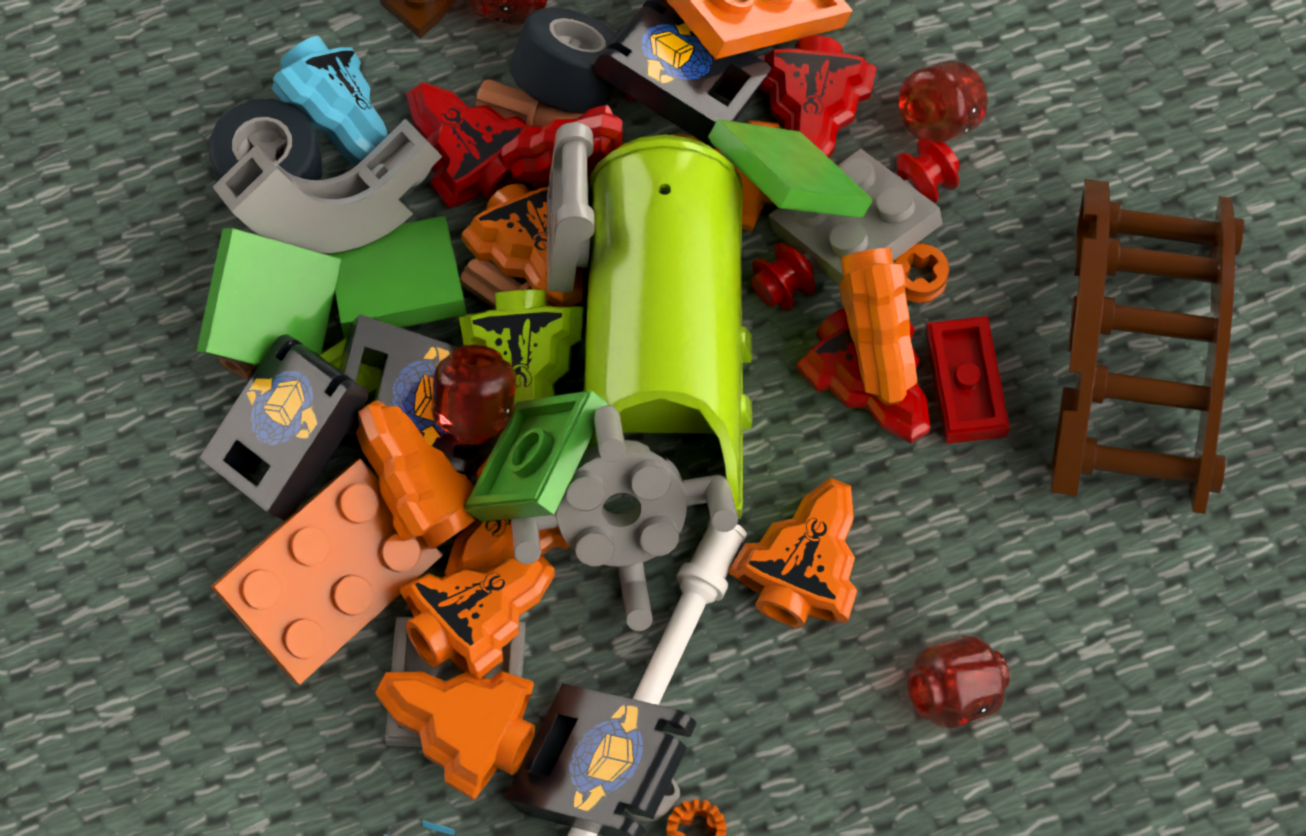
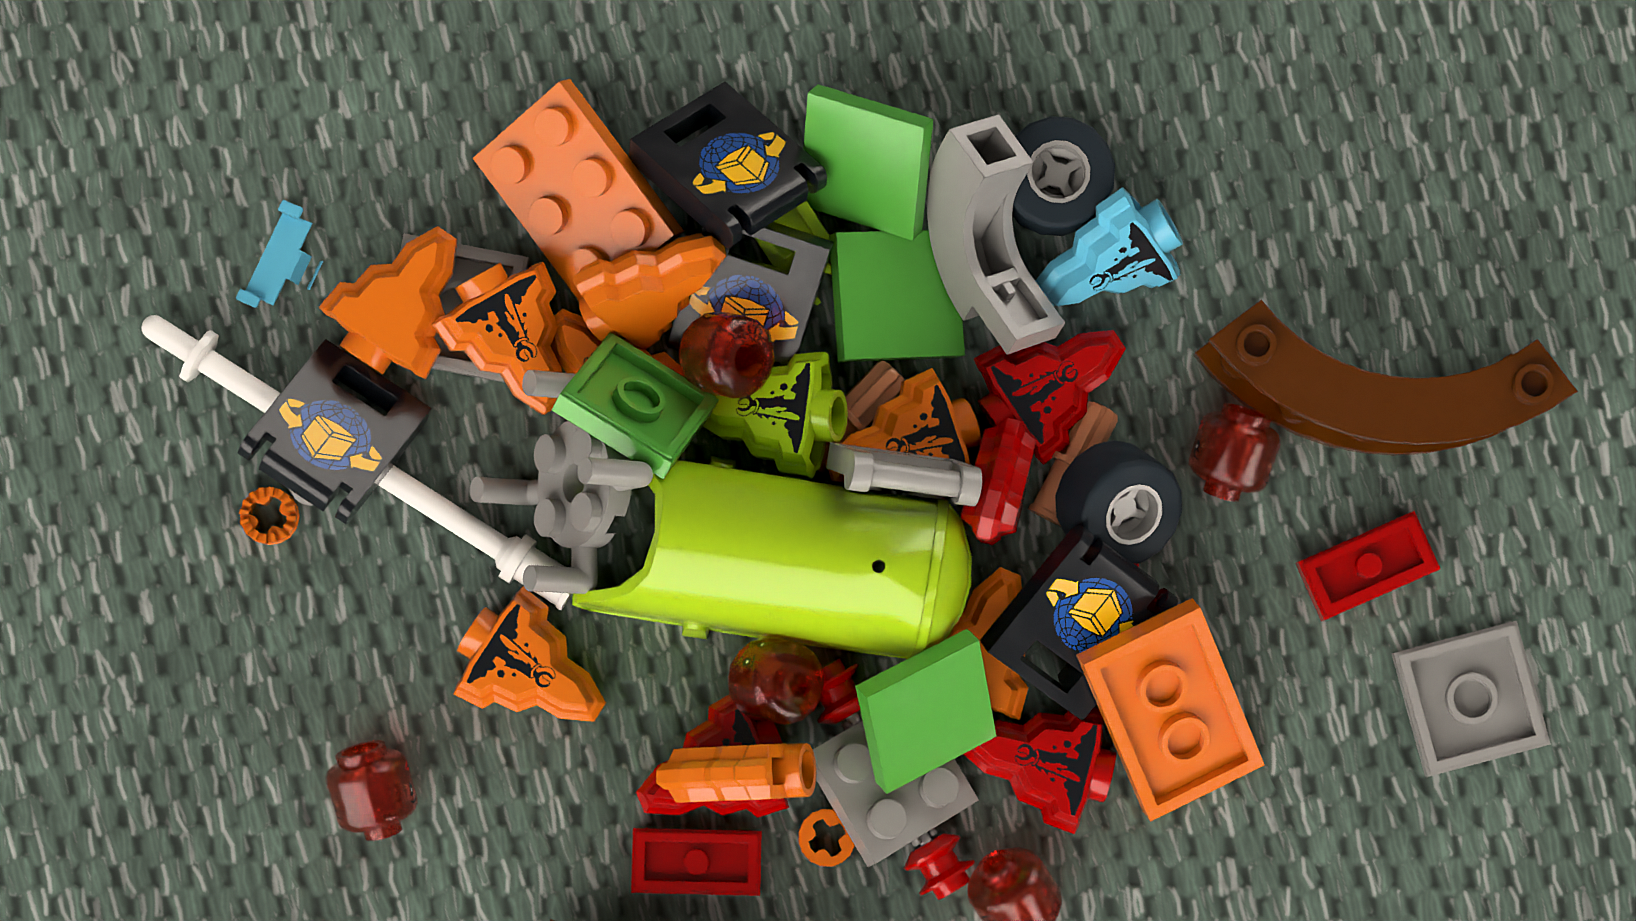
camera: 90 degrees right, 20 degrees up
(784, 313) = (775, 681): none -> clear red head

